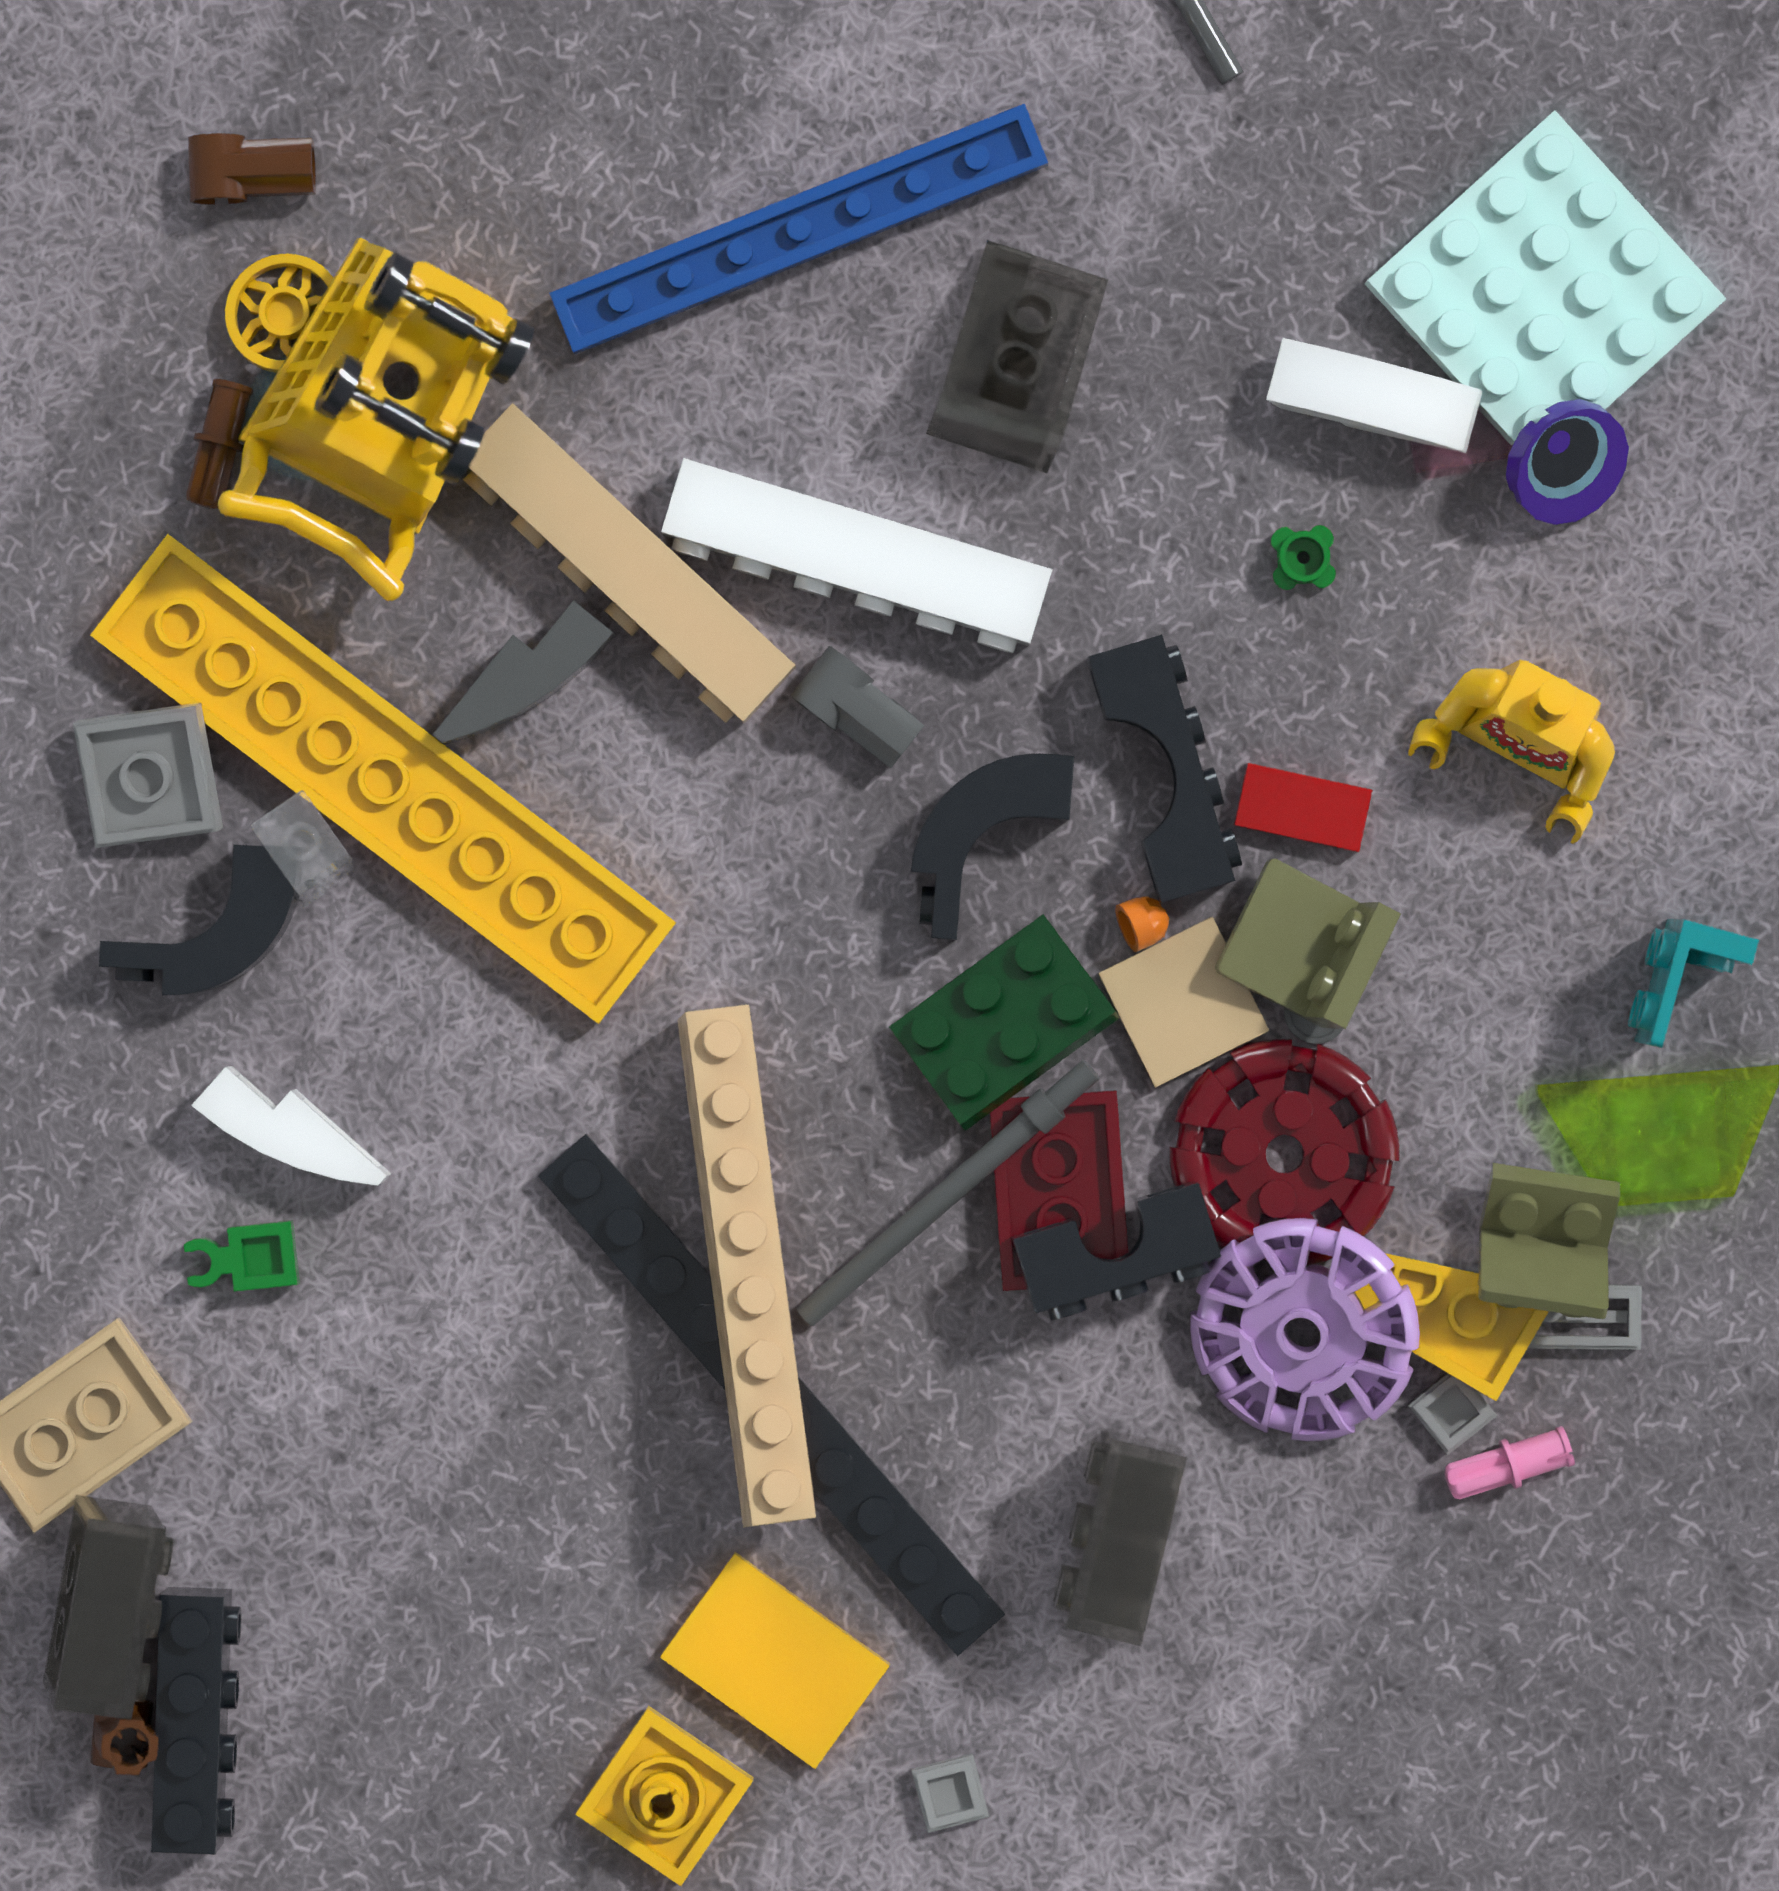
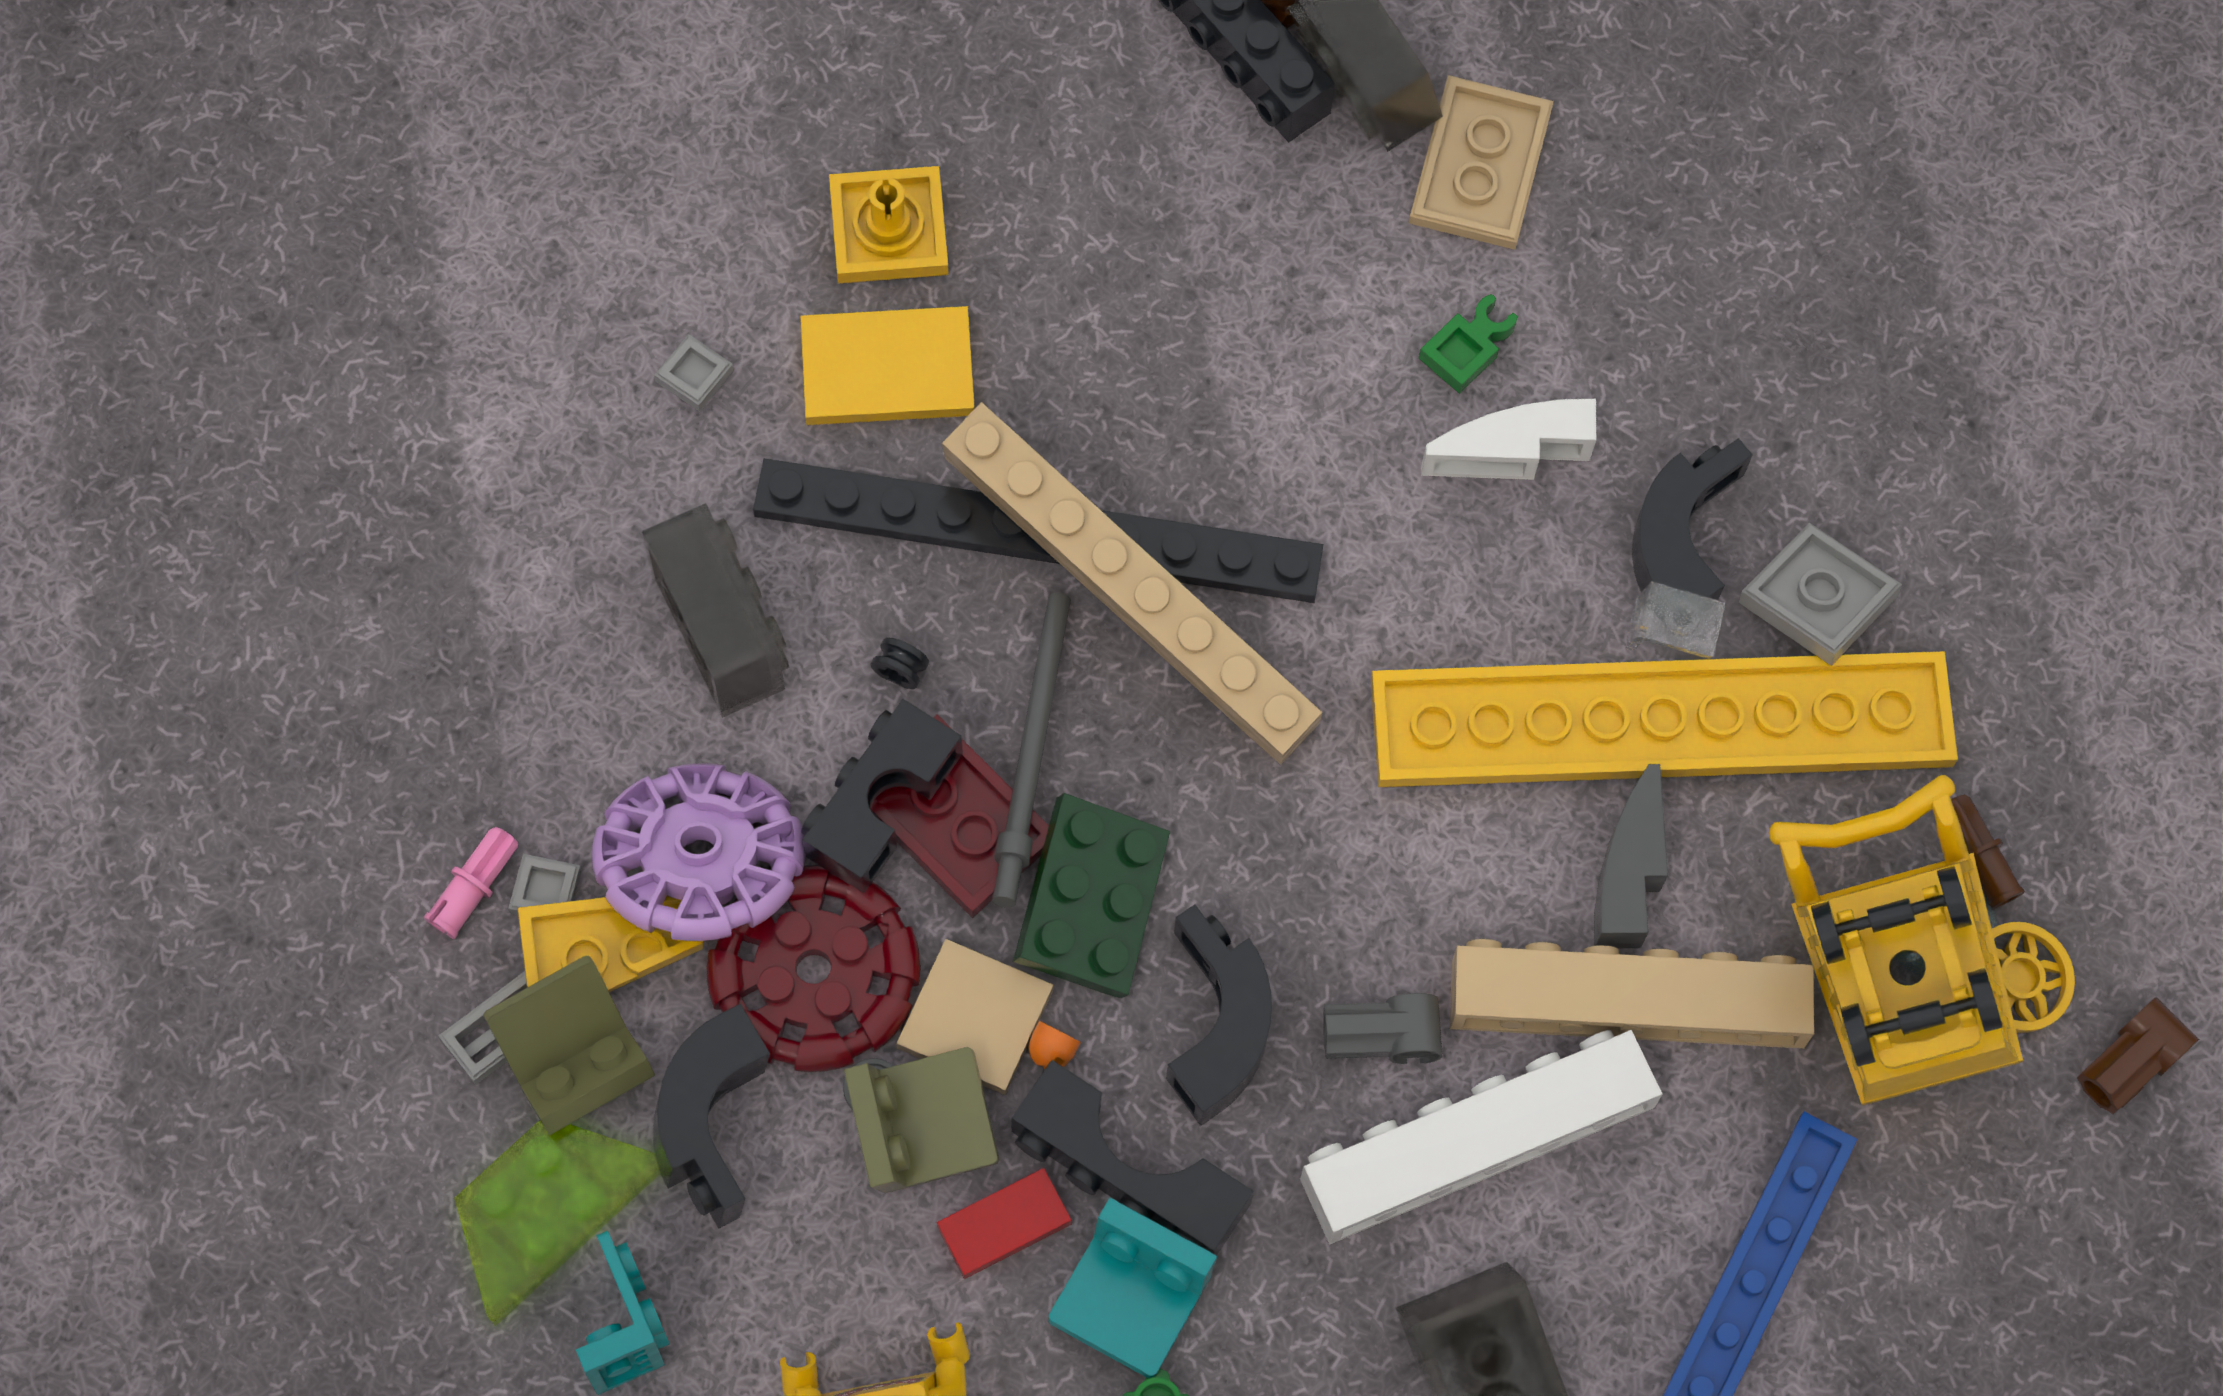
camera: 135 degrees right, 20 degrees down
(994, 1365) = (900, 663): none -> black bush
(1253, 660) = (1132, 1289): none -> teal bracket
(1467, 1130) = (703, 1070): none -> black arch

